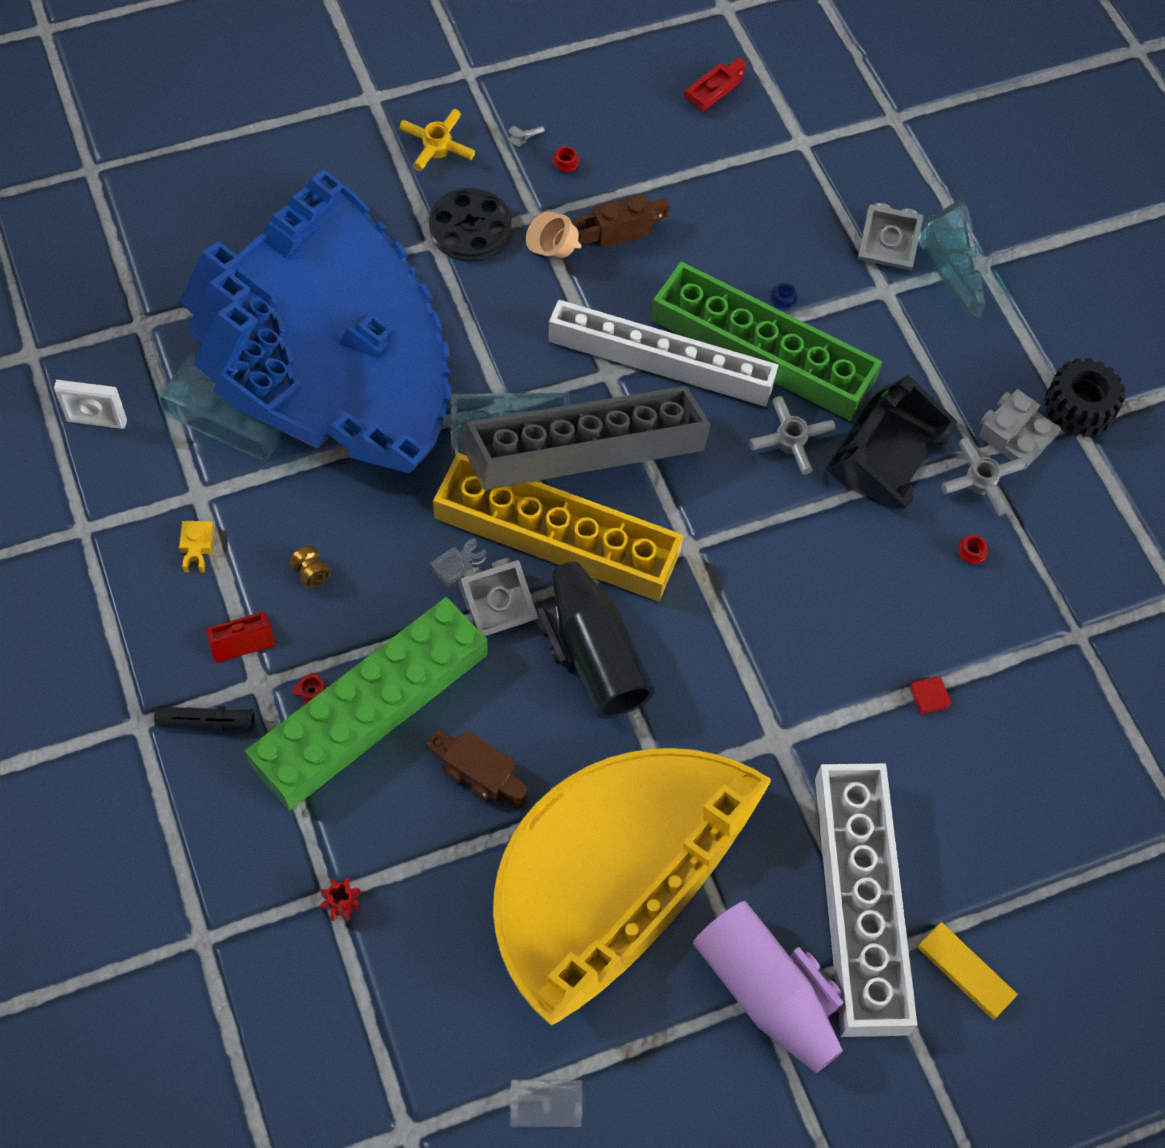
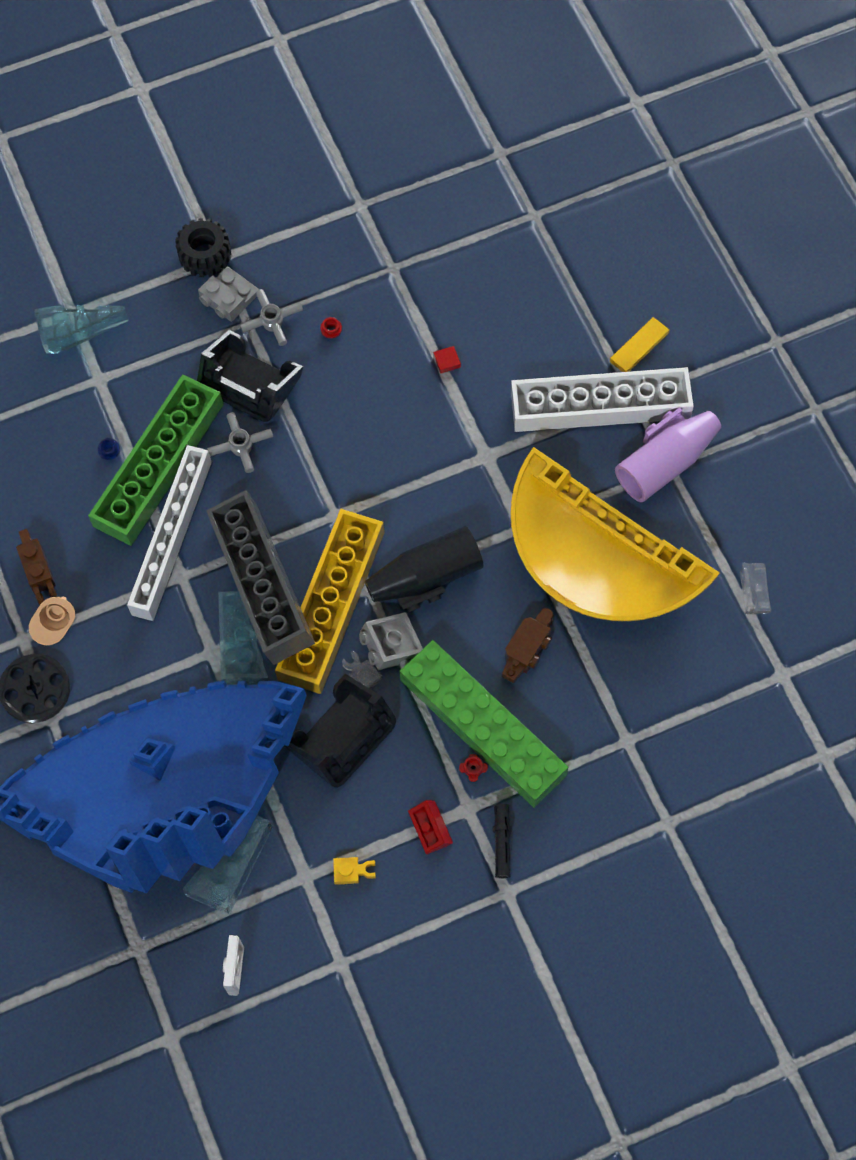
camera: 85 degrees left, 5 degrees up
(311, 569) = (371, 778): pearl gold wheel -> none
(336, 891) = (633, 735): red gear -> none
(368, 535) = (345, 732): none -> black windscreen
(890, 236) = (52, 371): light grey plate -> none

